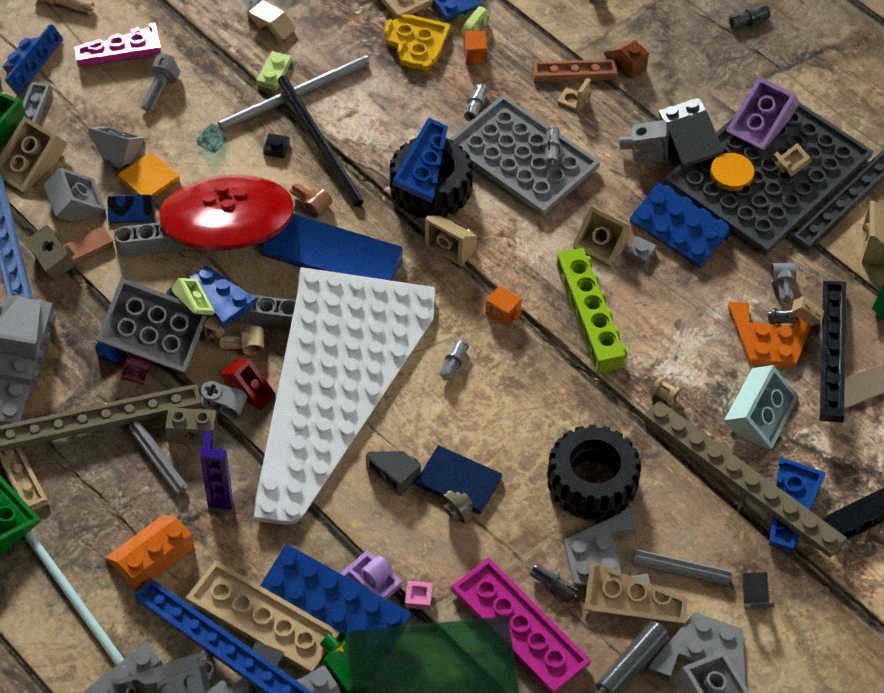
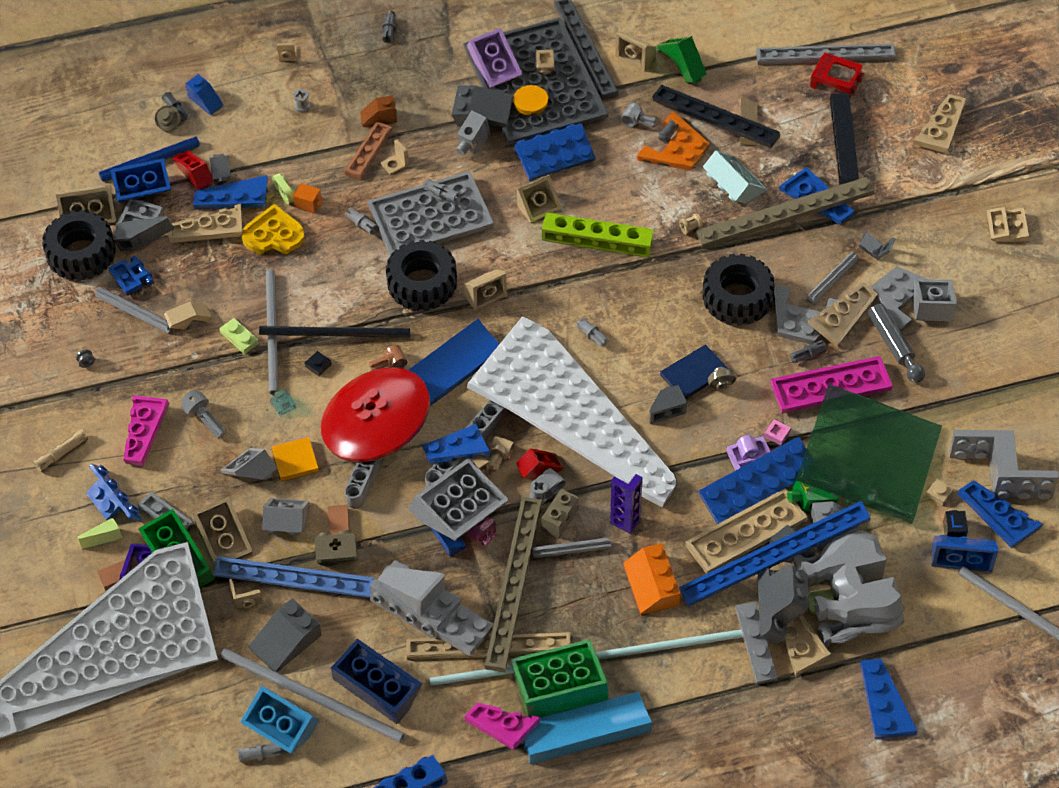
camera: 60 degrees left, 0 degrees up
(130, 208) = (321, 482): blue slope -> none
(192, 295) = (450, 461): yellowish green slope -> none
(421, 166) = (419, 266): blue wing -> none
(503, 306) = (563, 282): orange brick -> none
(641, 250) = (562, 184): light grey plate -> none
(807, 311) = (677, 114): tan piece -> none

